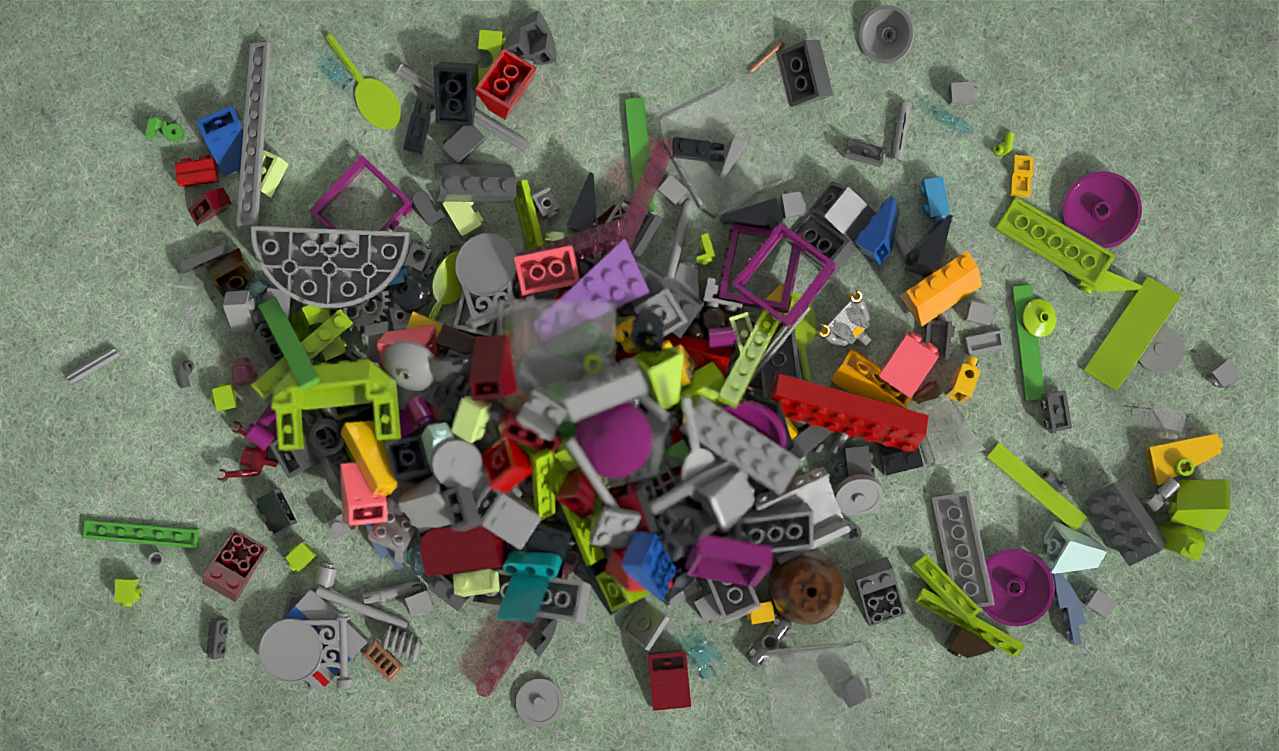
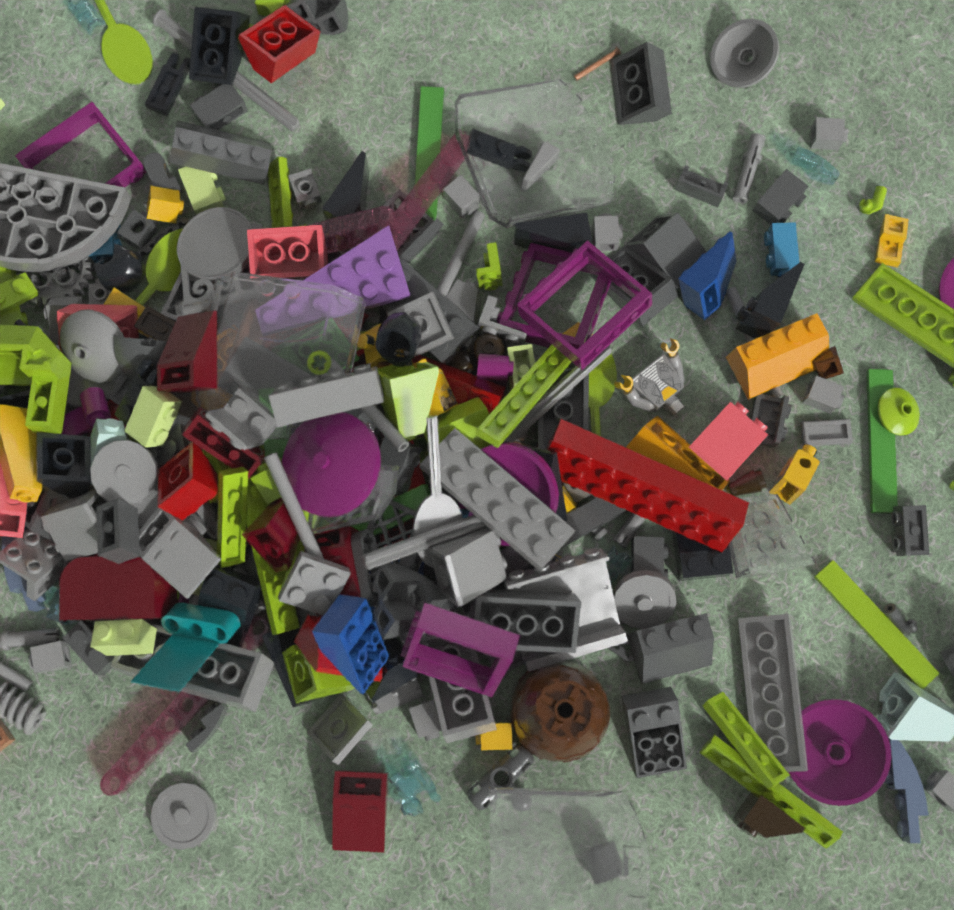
camera: 10 degrees right, 10 degrees down
(436, 234) = (164, 204): none -> yellow brick
(884, 527) = (672, 648): none -> dark grey slope
(929, 155) = (780, 198): none -> dark grey brick
(981, 287) = (829, 364): none -> reddish brown slope

